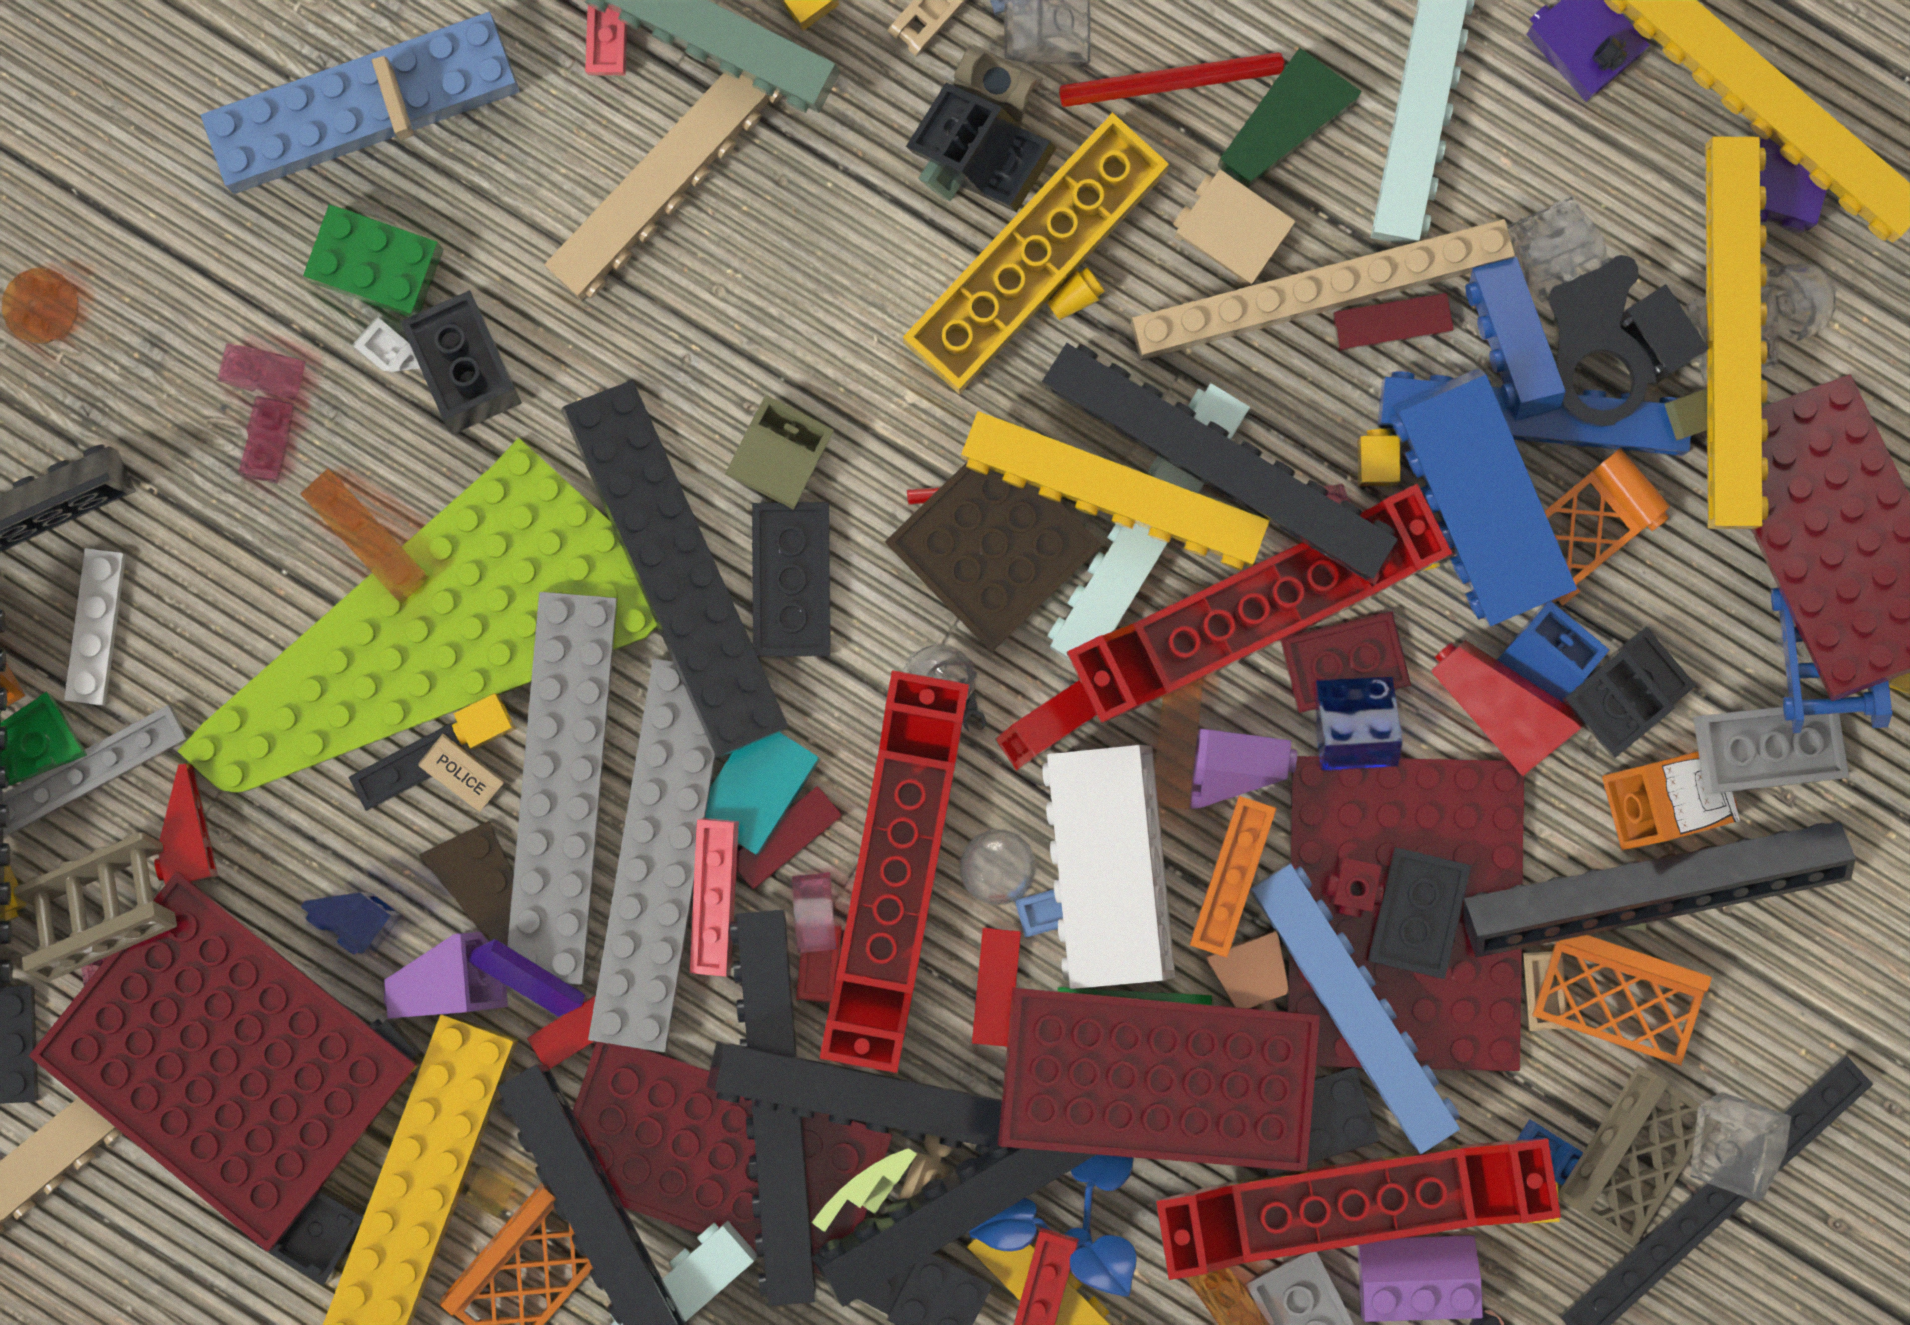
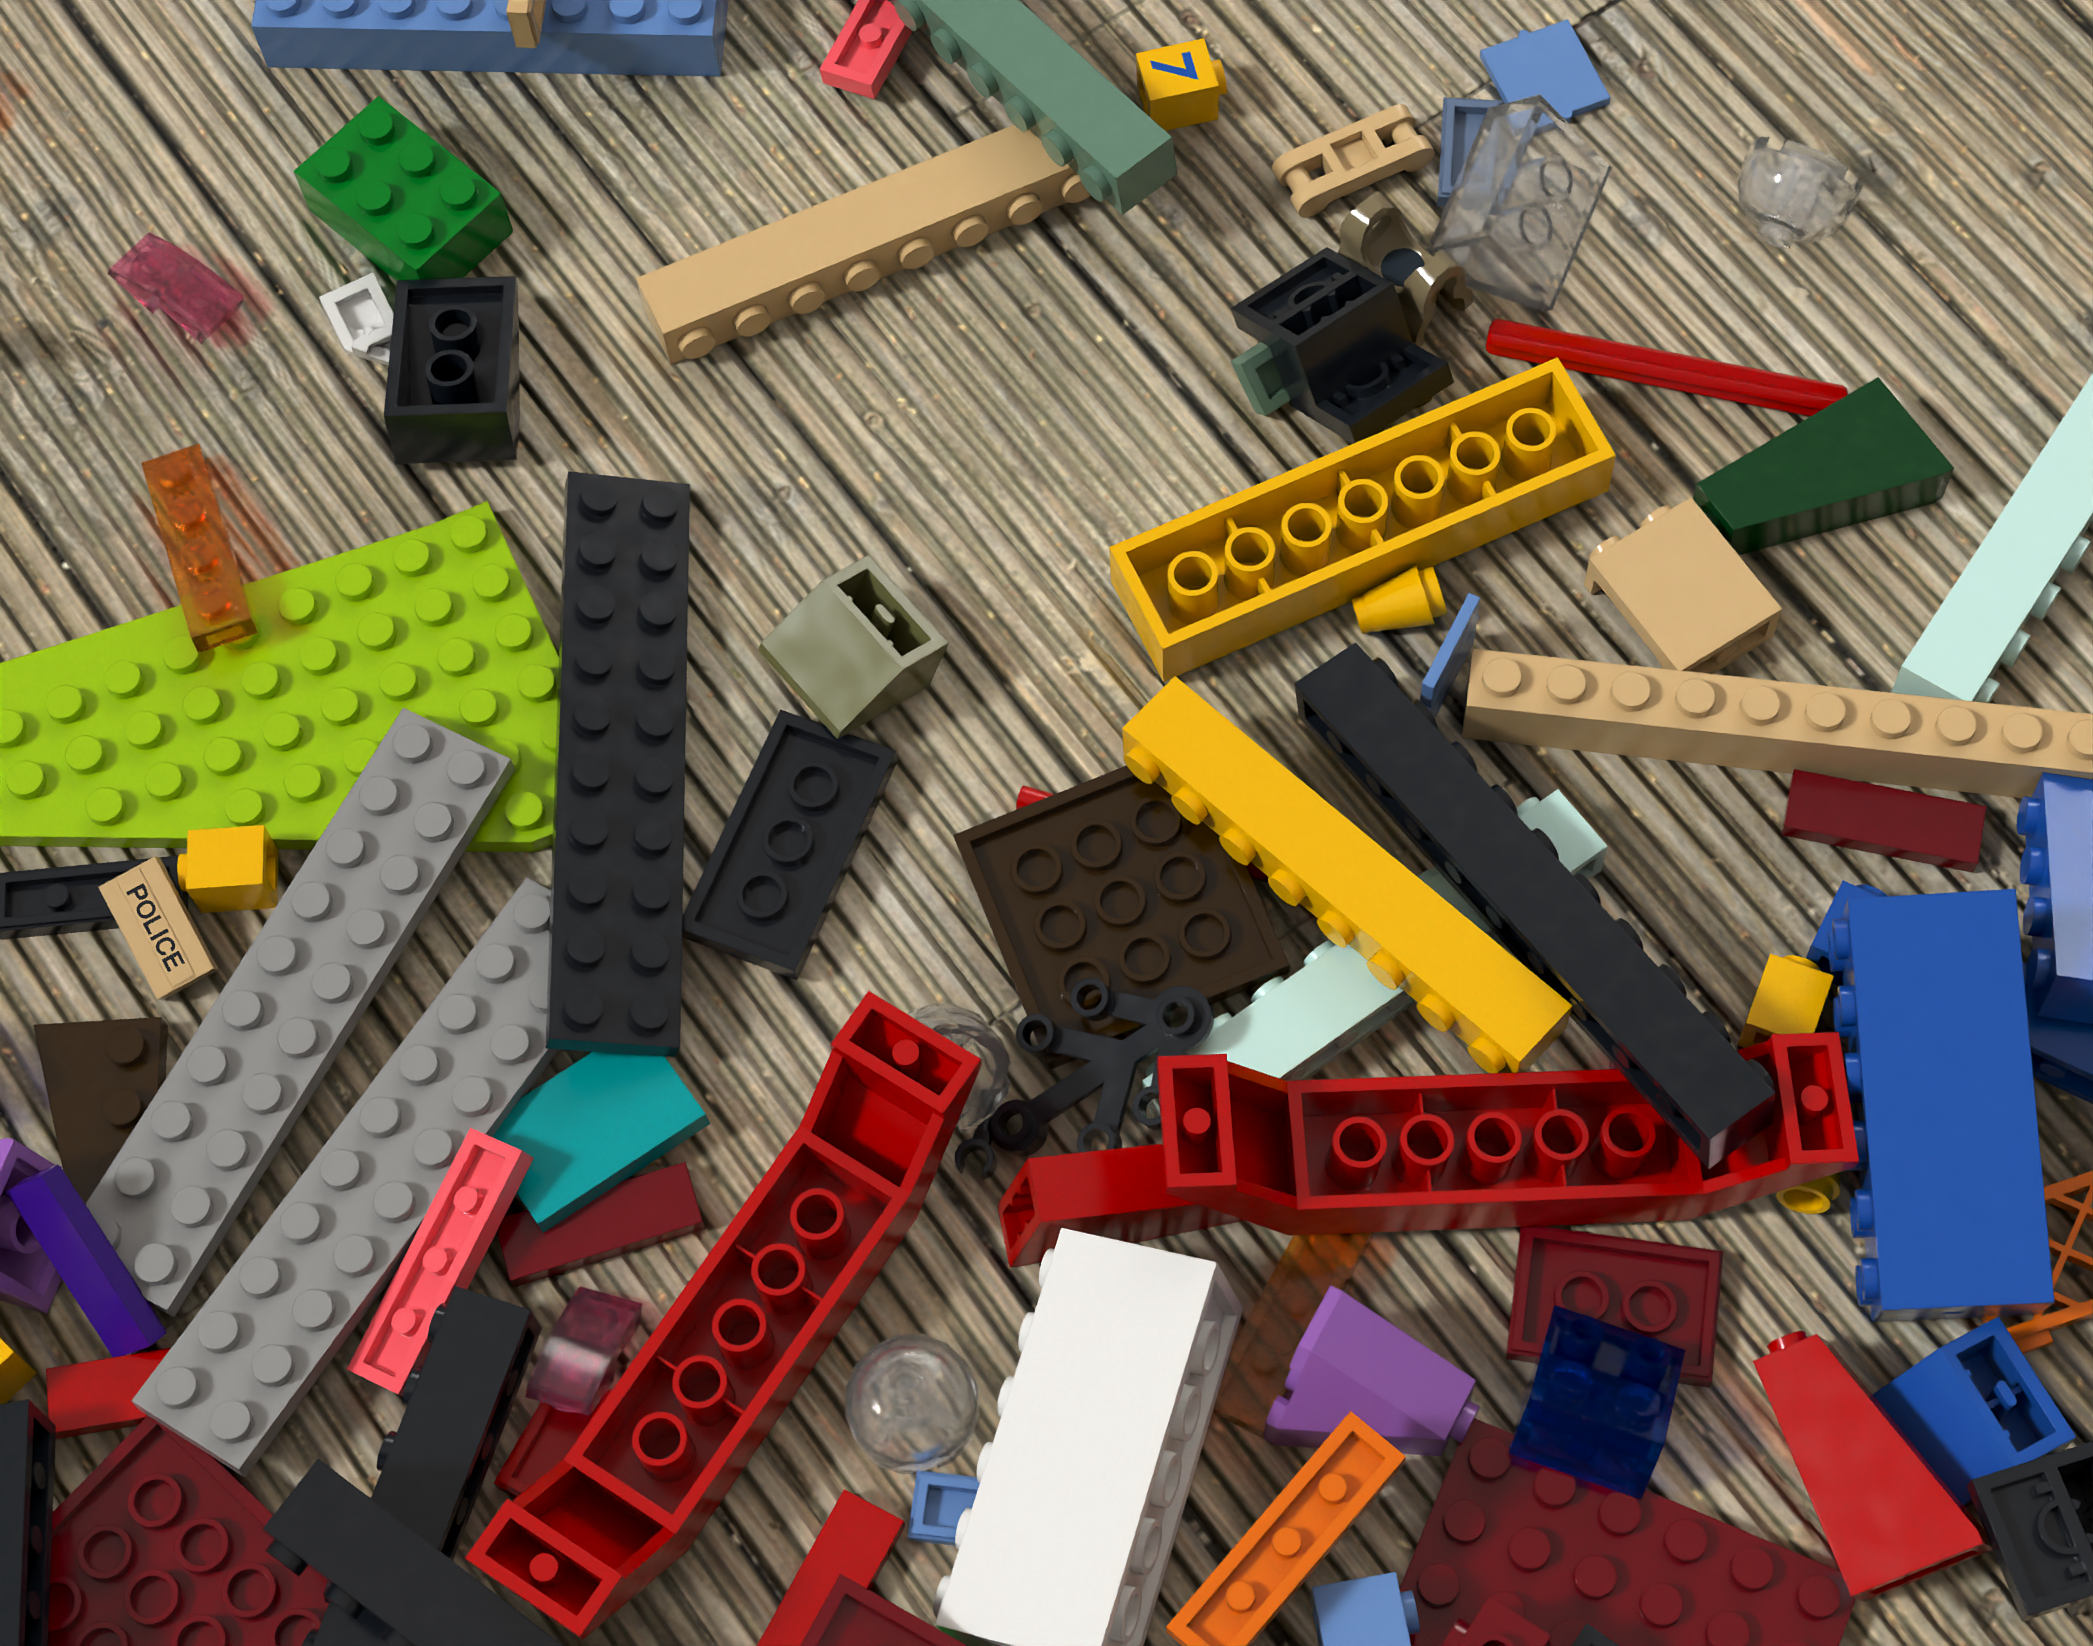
camera: 20 degrees right, 20 degrees down
(267, 439) = (142, 377): clear pink slope -> none
(1029, 643) = (1110, 1065): none -> black plant
(1119, 327) = (1451, 656): none -> medium blue piece

